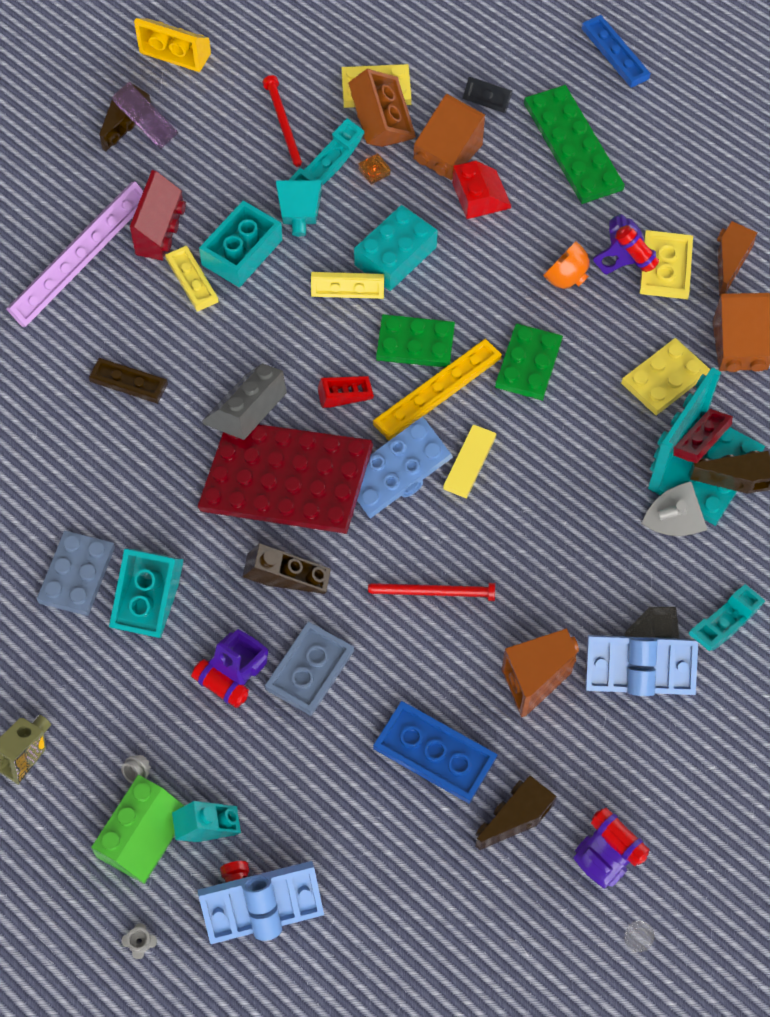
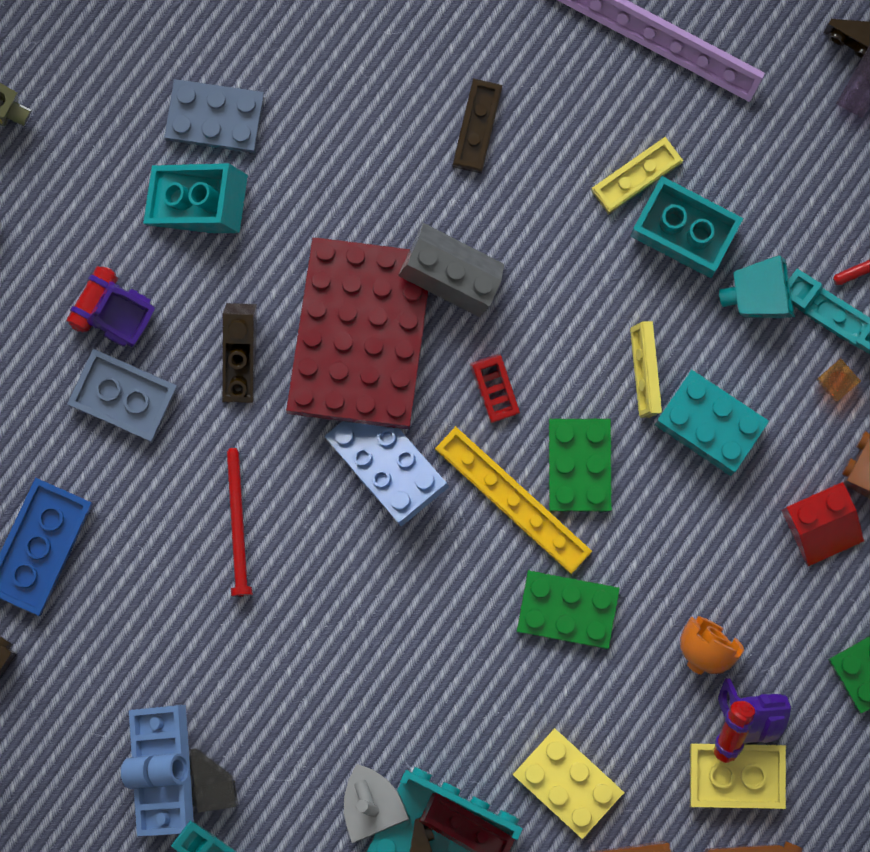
camera: 85 degrees right, 20 degrees up
(156, 217) = (712, 116): slope -> none
(469, 461) = (415, 549): light yellow tile -> none
(538, 668) = (139, 651): dark orange slope -> none

